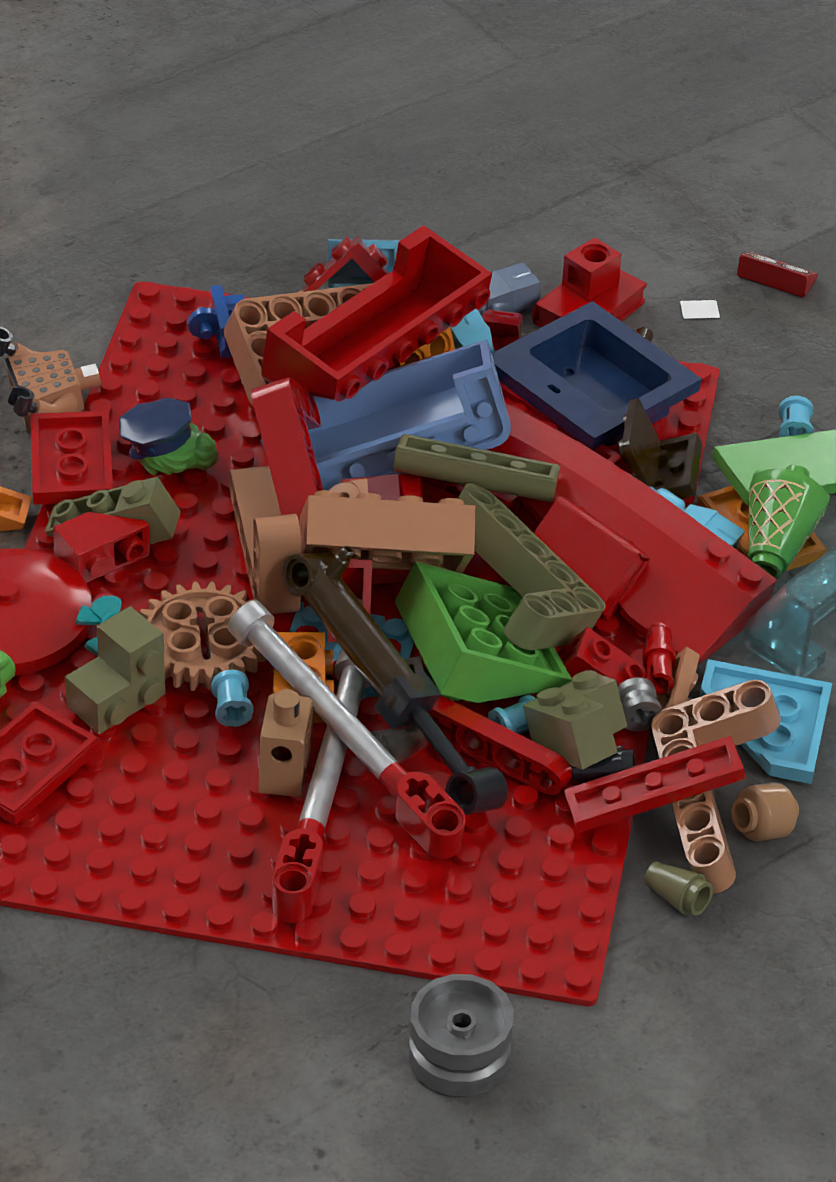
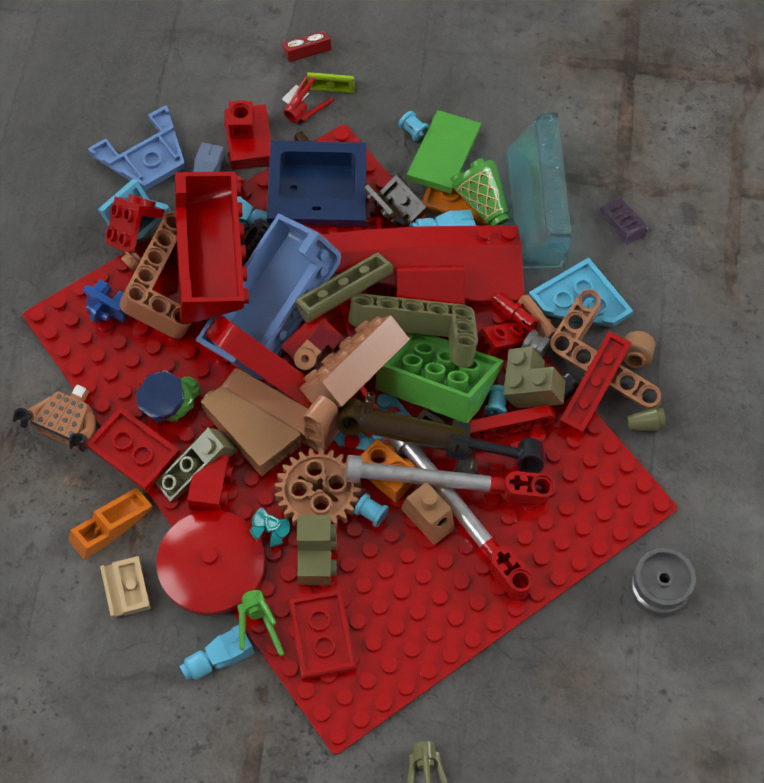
camera: 45 degrees left, 20 degrees up
(208, 532) = (255, 433): none -> medium nougat slope
(481, 244) = (149, 160): none -> medium blue wing
(680, 313) = (297, 108): none -> red plant
(756, 319) = (332, 82): none -> lime slope

